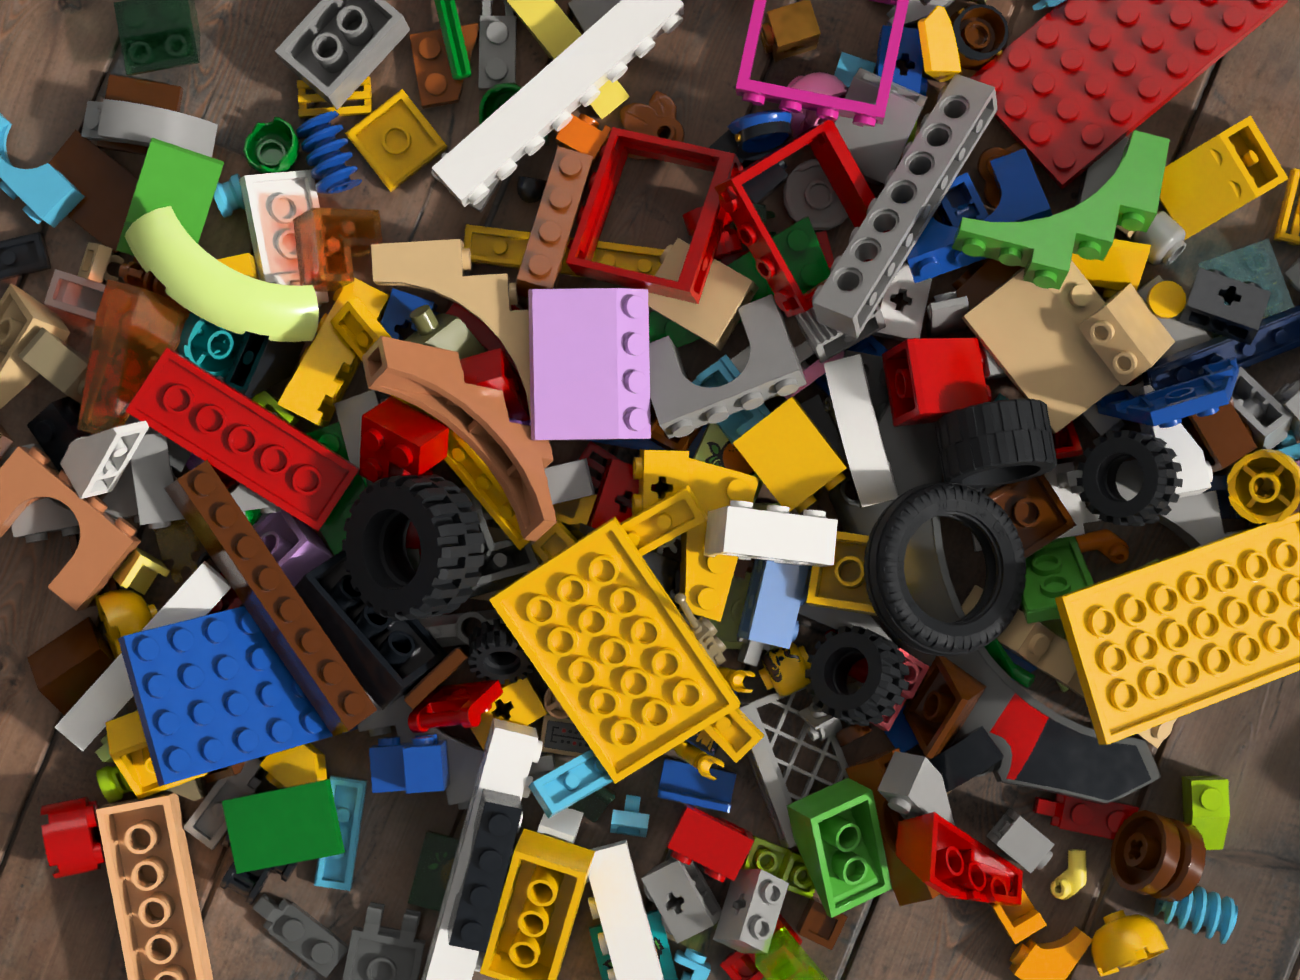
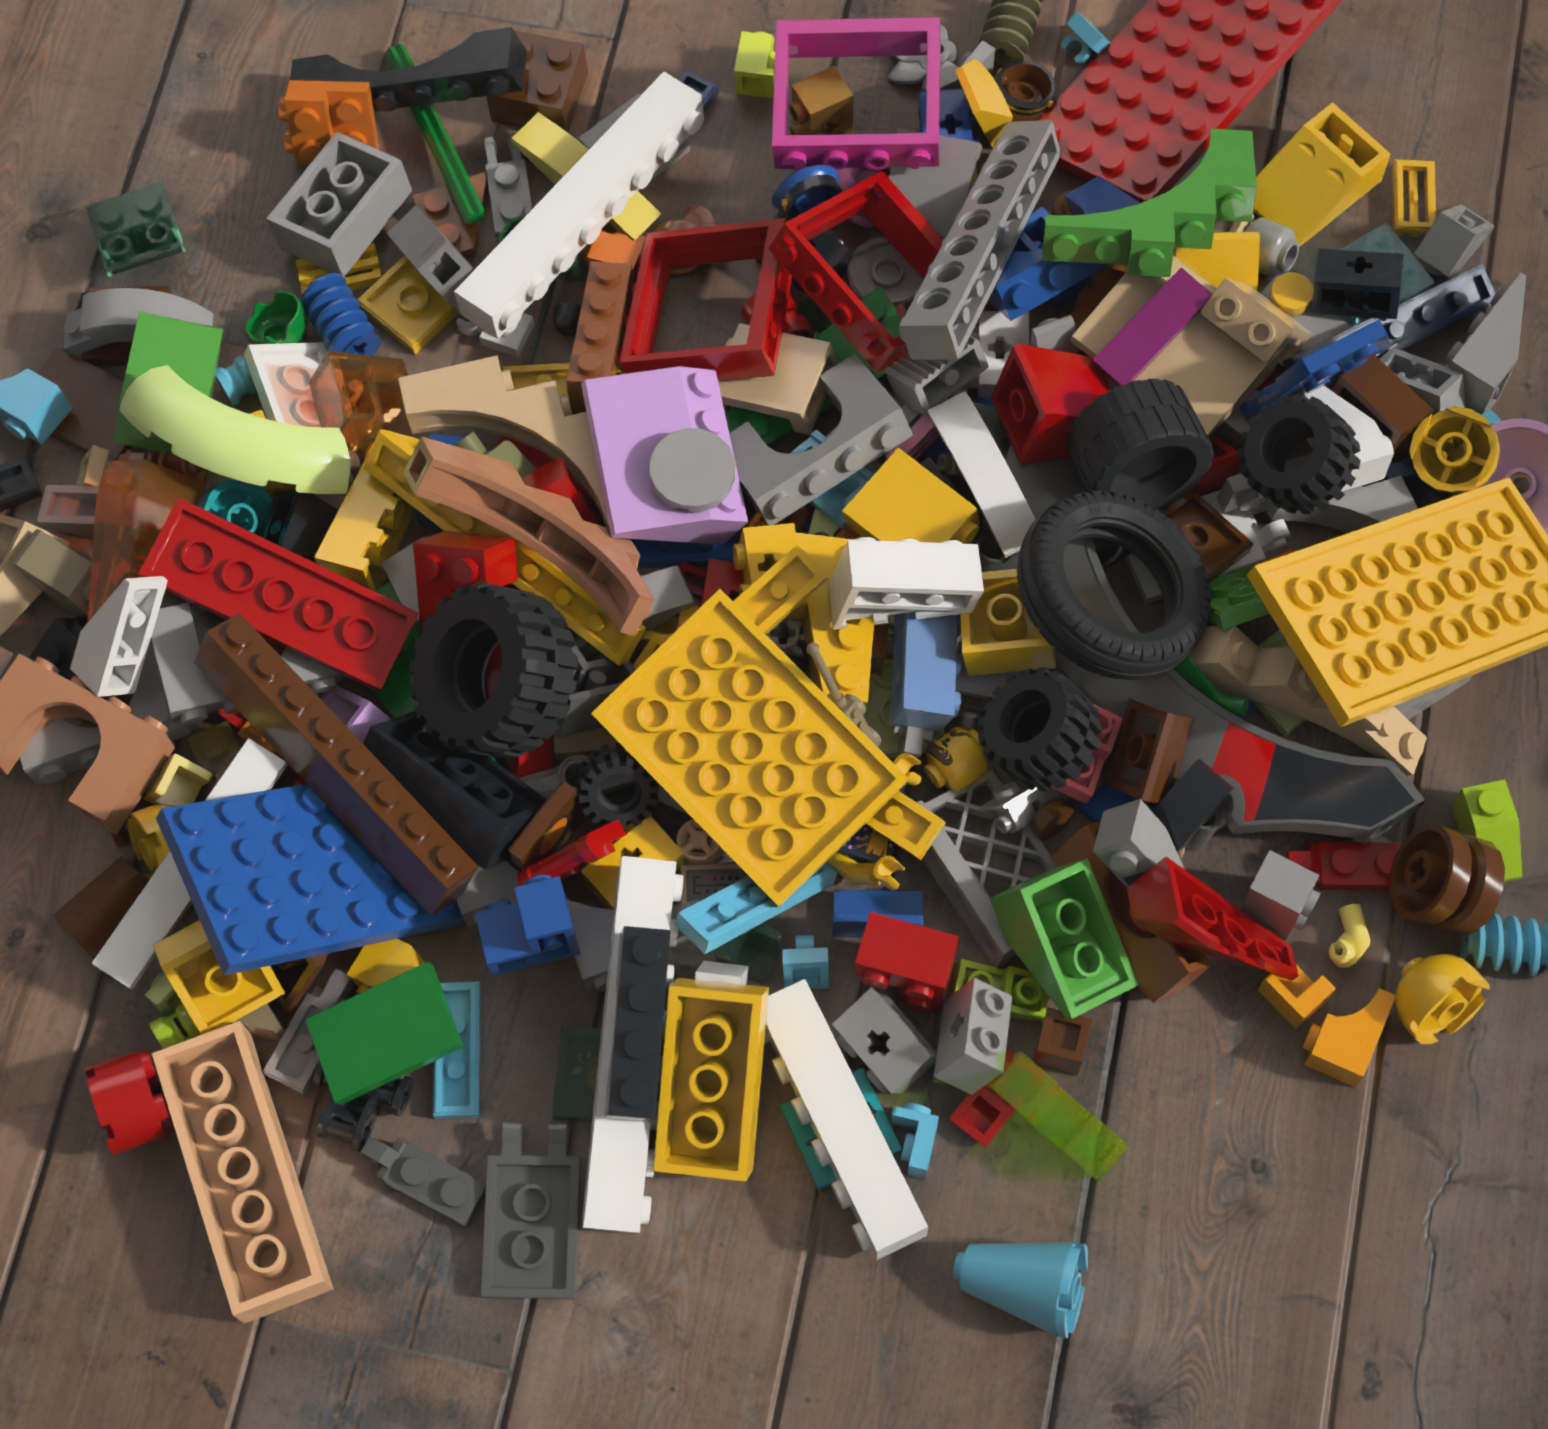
camera: 10 degrees left, 20 degrees down
(419, 112) = (431, 253): none -> light grey slope
(610, 394) = (692, 470): none -> light grey tile
(1033, 330) = (1152, 328): none -> magenta tile

